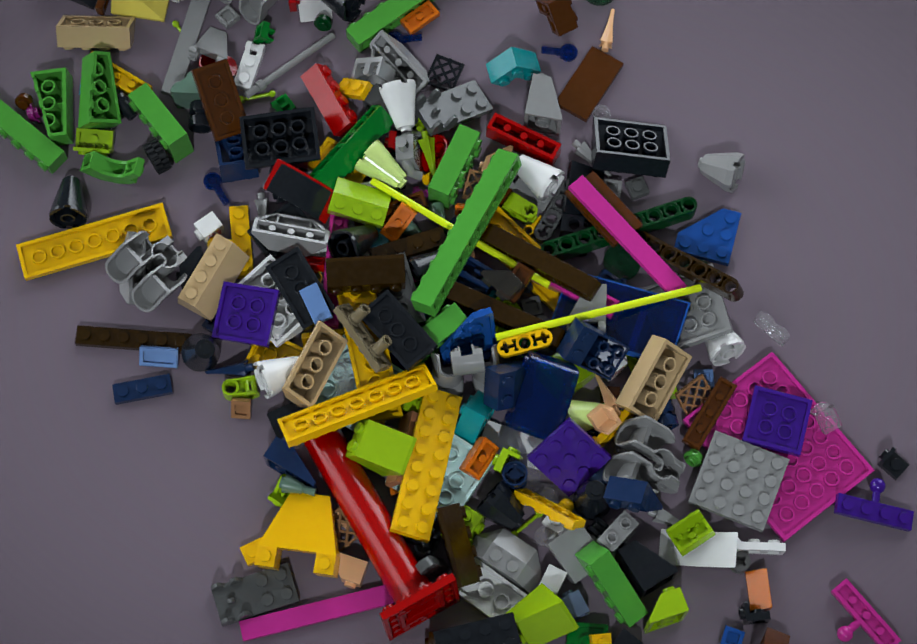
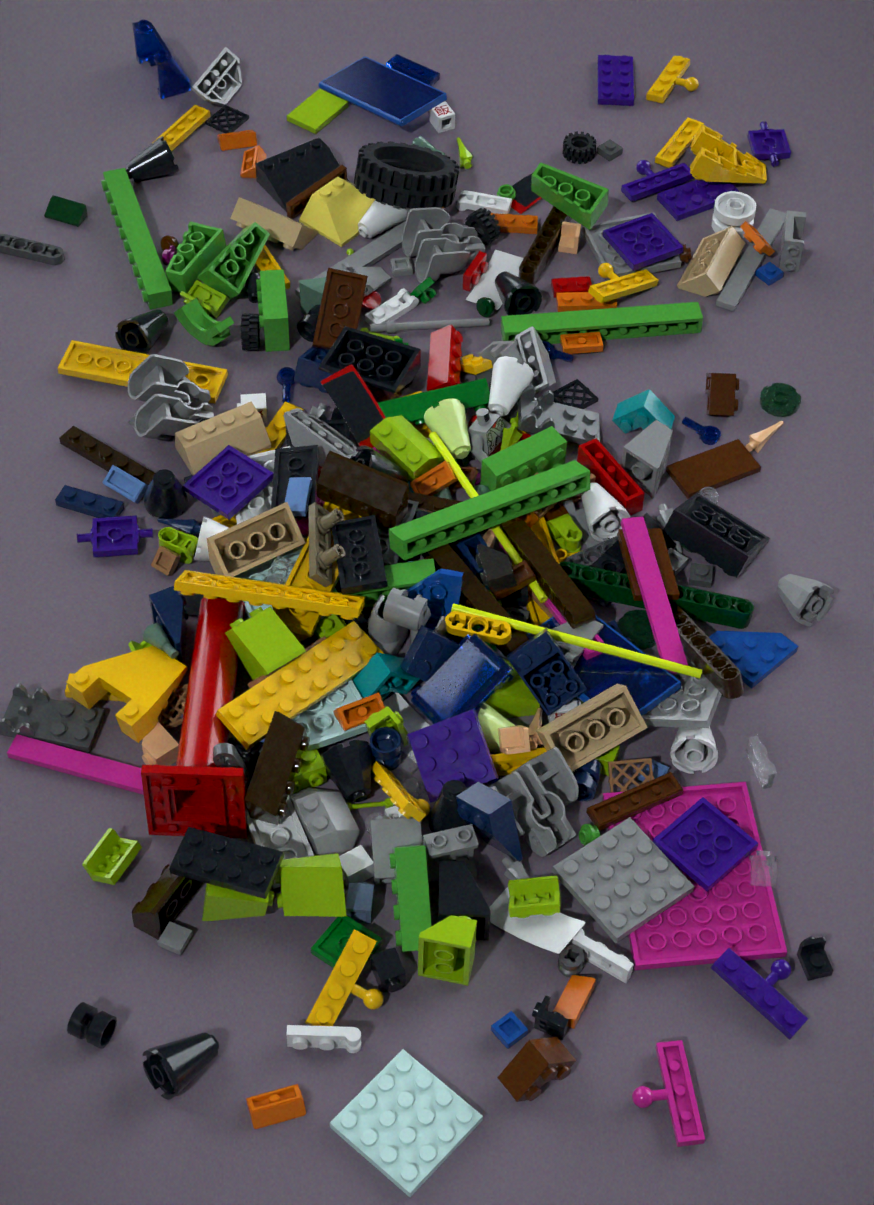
camera: 30 degrees right, 20 degrees down
(185, 408) = (115, 536): none -> dark purple plate

